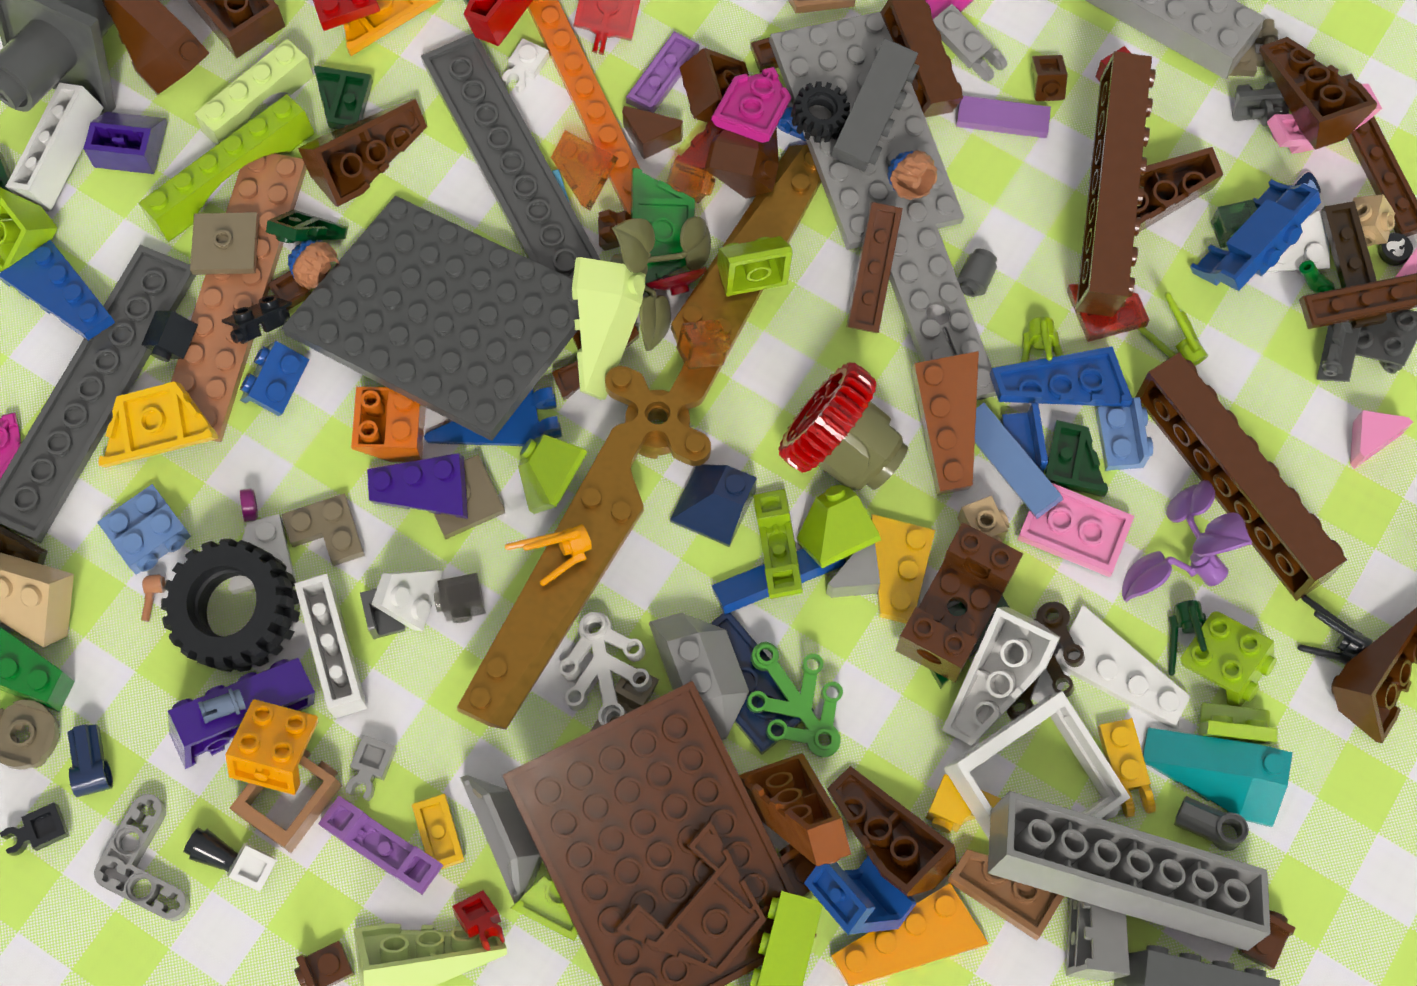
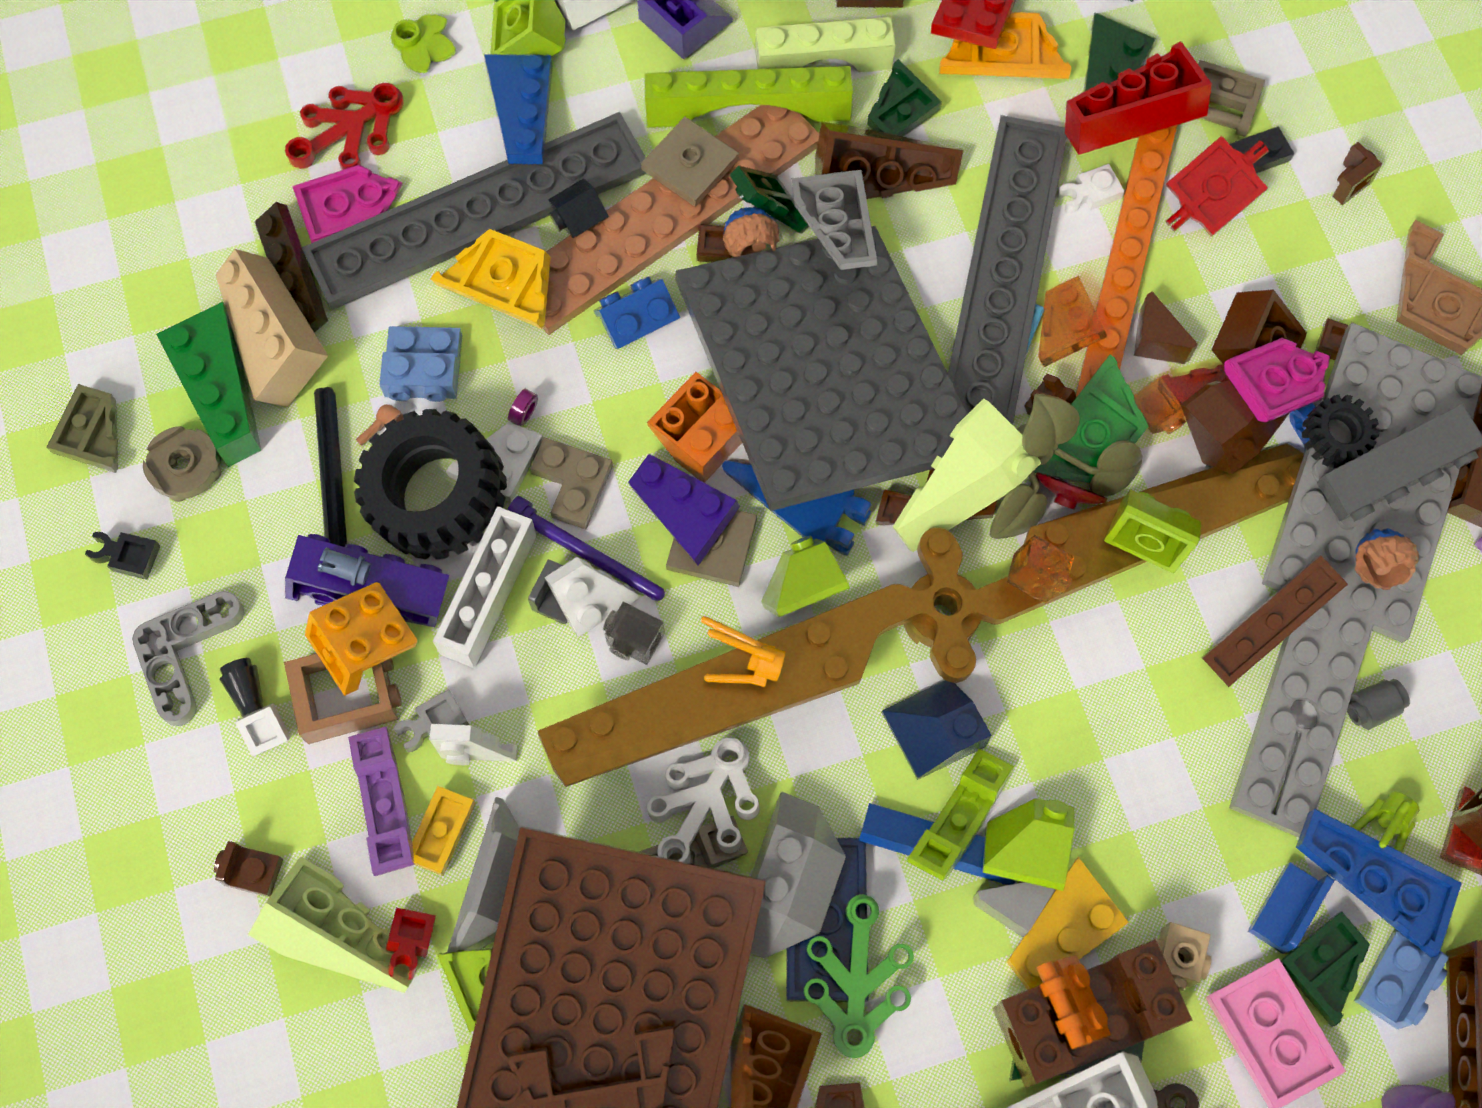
camera: 40 degrees right, 0 degrees up
(89, 769) = (207, 536): dark blue piece -> none
(137, 650) = (330, 466): none -> black axle
(269, 312) = (650, 242): black hinge -> none
(369, 204) = (838, 216): none -> light grey wedge
(377, 569) = (524, 507): none -> dark purple piece
(406, 760) = (465, 743): none -> white wing
(662, 73) = (1215, 287): medium lavender tile -> none
(845, 432) = (1112, 759): piece -> none
(948, 415) = (1234, 817): dark orange wedge -> none
(954, 606) = (1070, 993): none -> orange plate
(1014, 463) = (1260, 915): medium blue tile -> none

